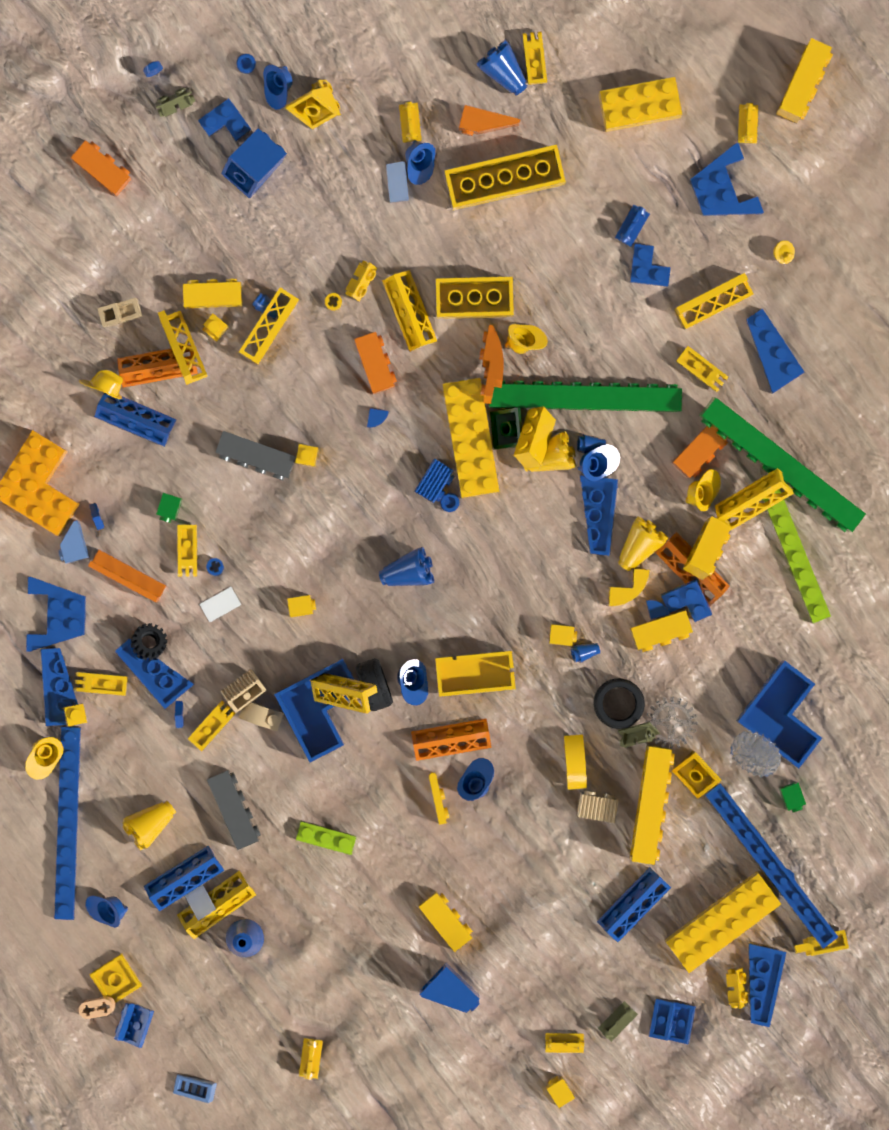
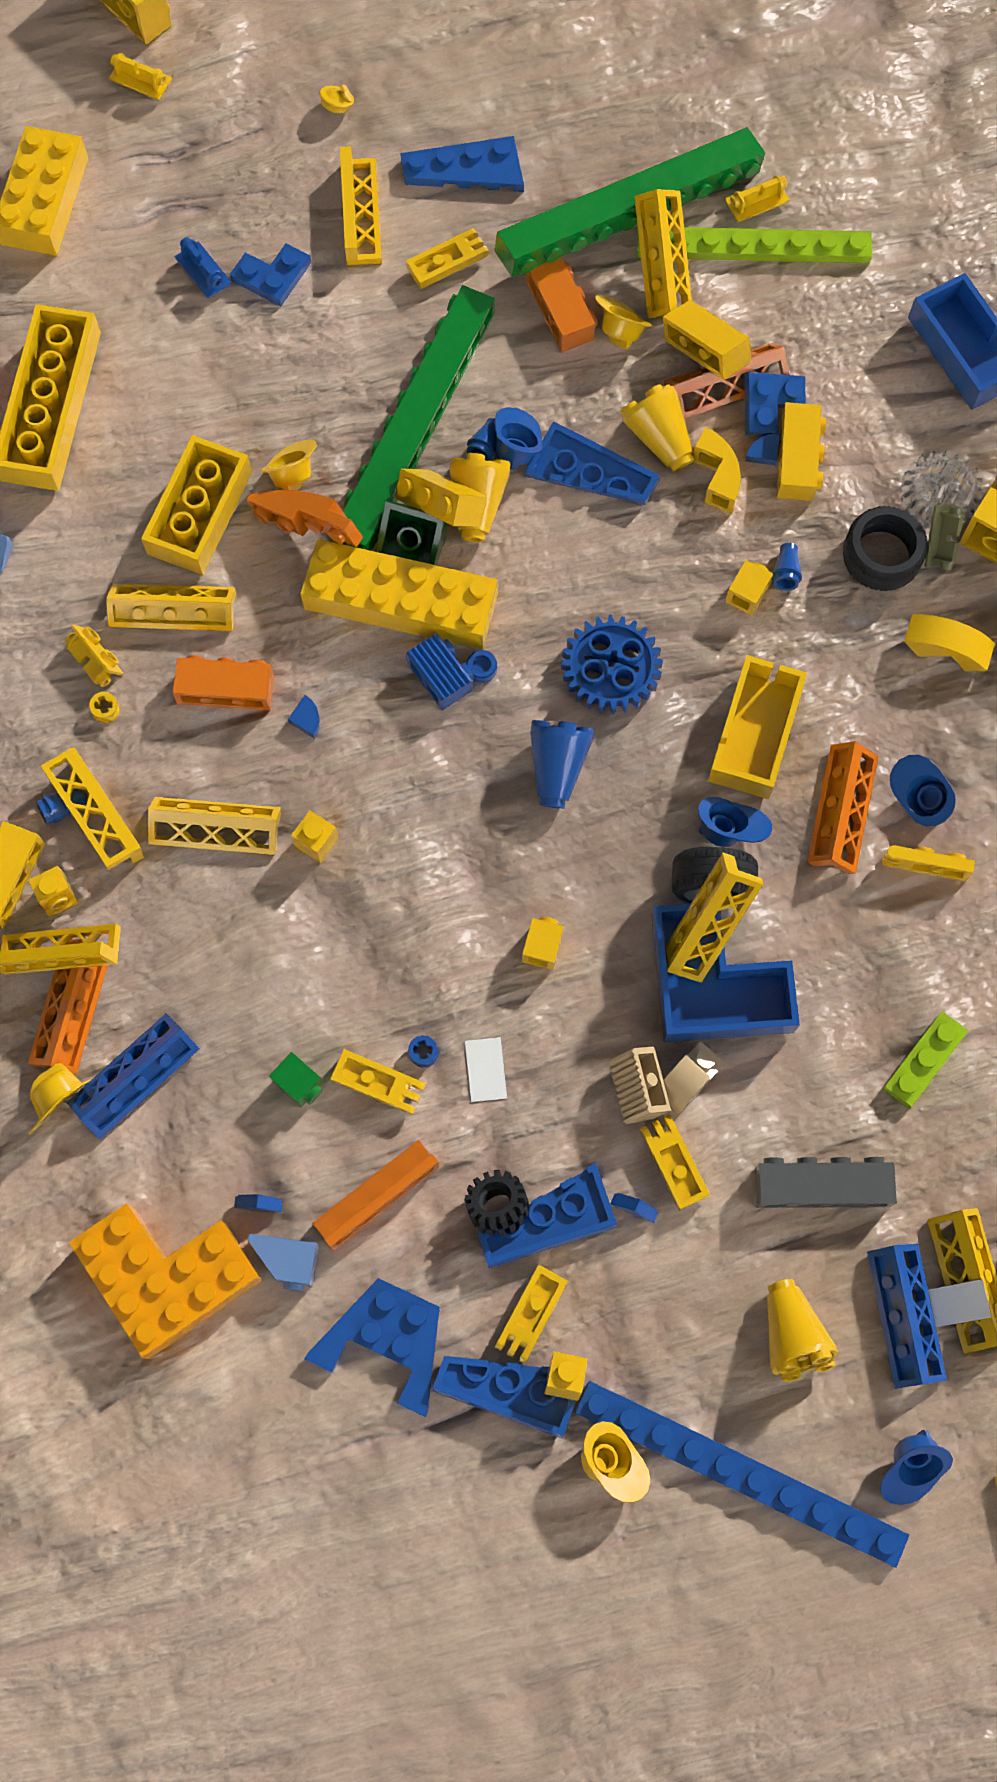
camera: 70 degrees left, 15 degrees down
(256, 455) = (278, 913): dark grey brick -> none
(294, 394) = (213, 814): none -> yellow fence
(498, 573) = (605, 689): none -> blue gear
(716, 192) = (209, 150): blue wing -> none
(825, 538) = (758, 198): none -> yellow hinge

